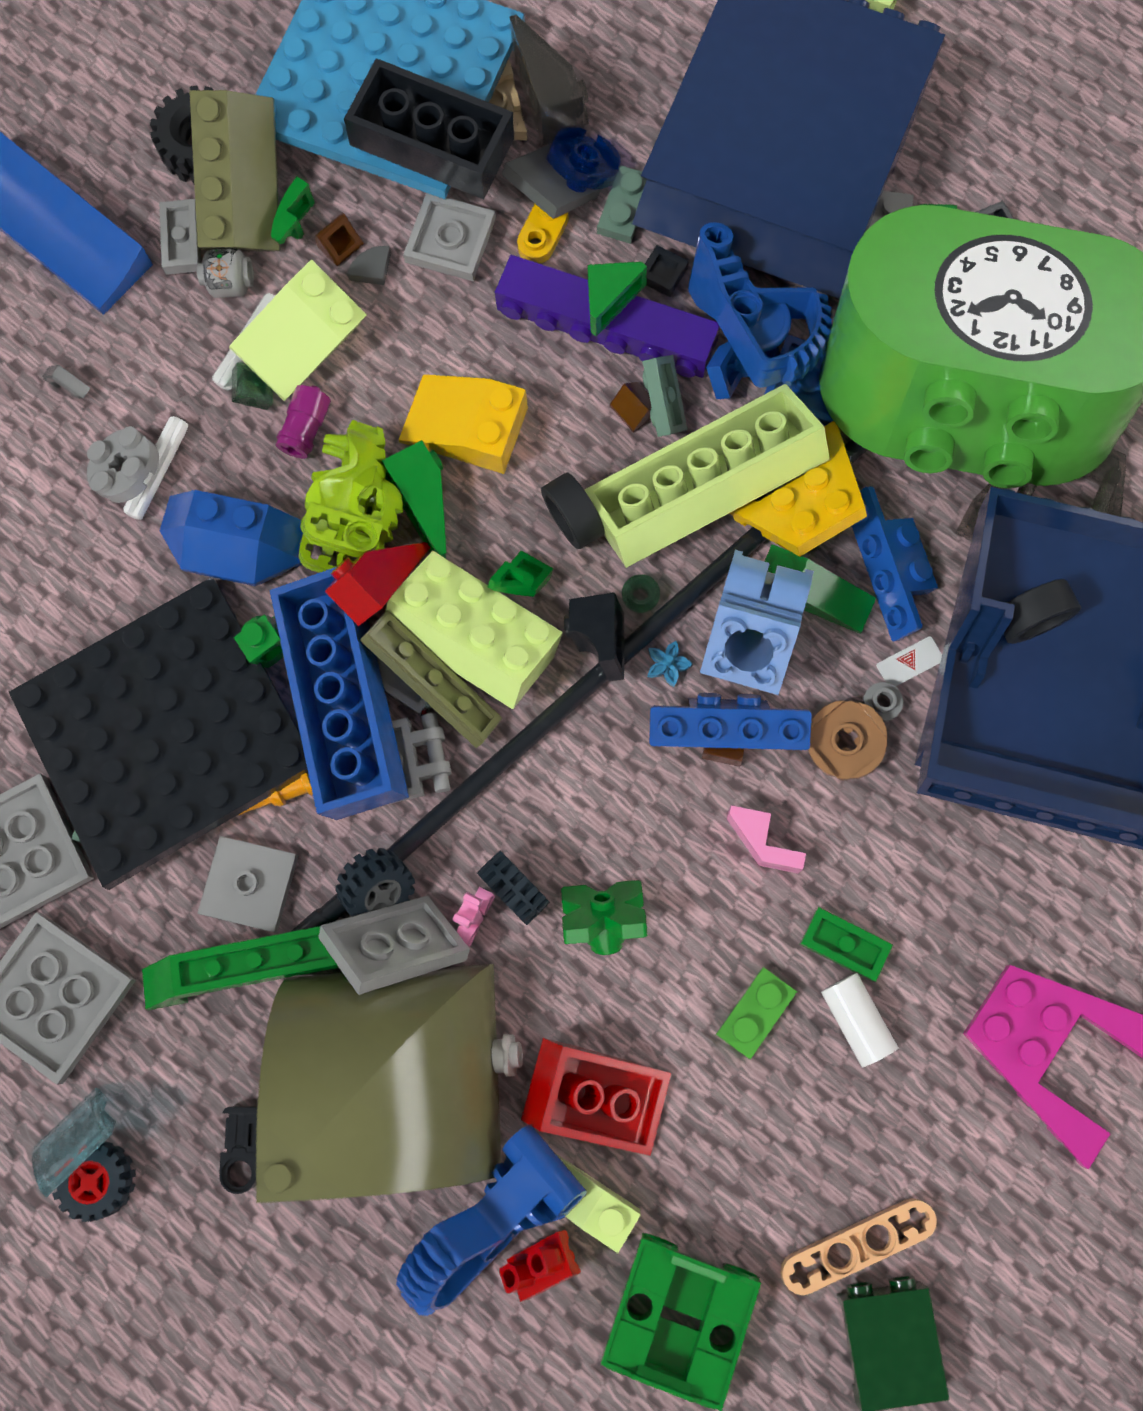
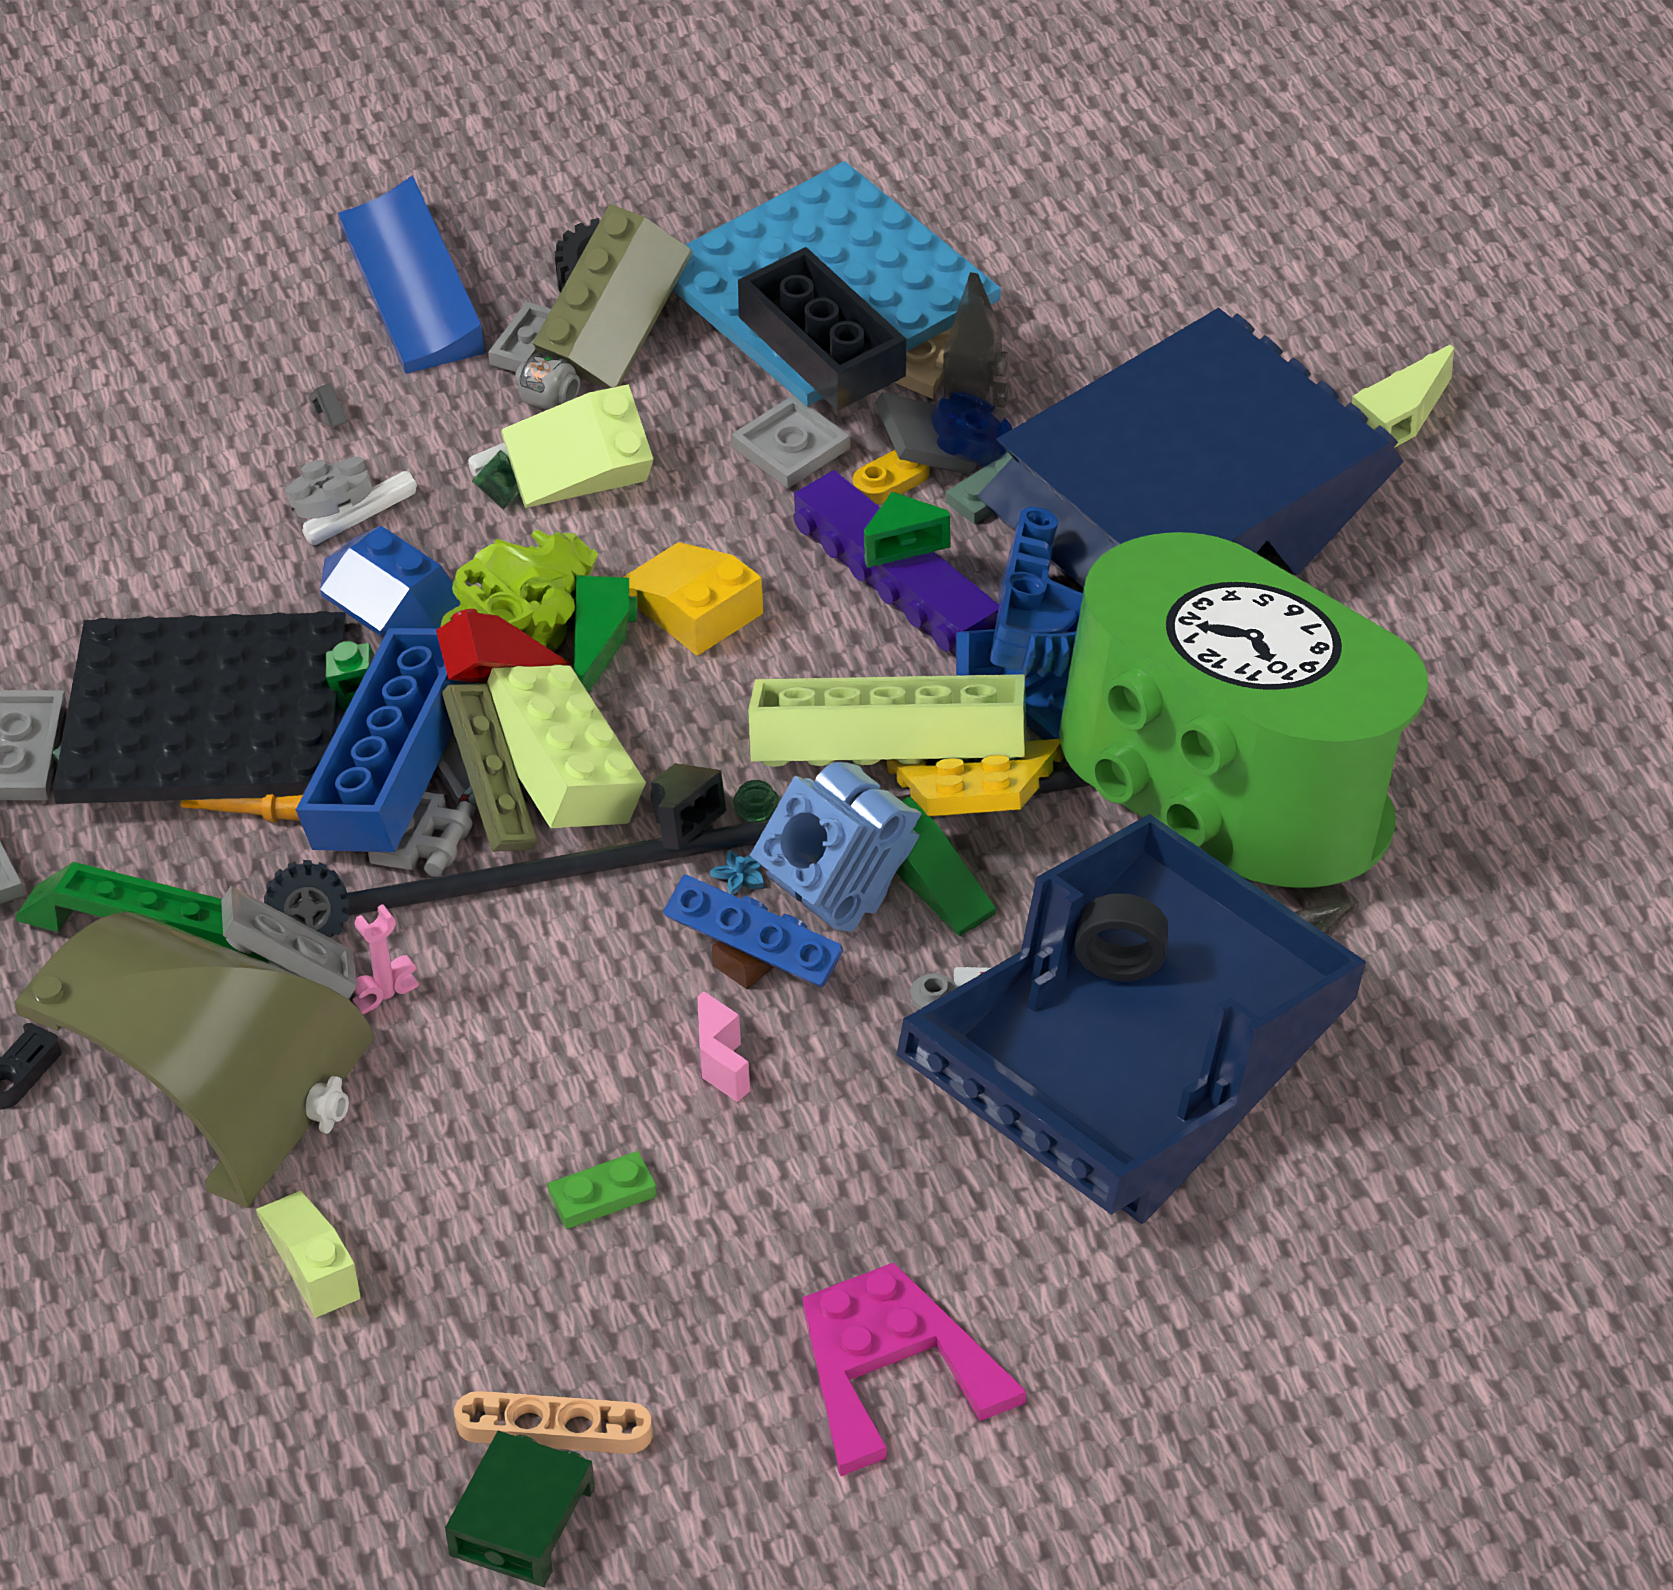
camera: 25 degrees right, 30 degrees down
(248, 884) = (191, 859): light grey plate -> none
(291, 210) = (649, 358): green slope -> none
(302, 421) = (543, 513): magenta piece -> none
(338, 239) = (678, 400): reddish brown slope -> none
(371, 266) = (695, 435): dark grey tile -> none
(513, 887) = (438, 965): black wheel -> none
(521, 576) = (647, 734): green slope -> none
(529, 1192) = (193, 1213): blue arm -> none
(540, 1267) = (232, 1279): red hips -> none
(572, 510) = (732, 694): black tyre -> none
(595, 1097) = (388, 1174): red slope -> none
(603, 916) = (507, 1030): green plant -> none
(632, 405) = (871, 650): reddish brown slope -> none
(665, 270) = (983, 553): black plate -> none
(665, 397) = (901, 638): sand green plate -> none
(668, 1352) = (354, 1358): green piece -> none
(846, 944) = (736, 1170): green plate -> none
(859, 1020) = (700, 1233): white pin -> none
(869, 744) = (870, 1026): medium nougat plate -> none
(894, 565) = (1029, 859): blue bracket -> none

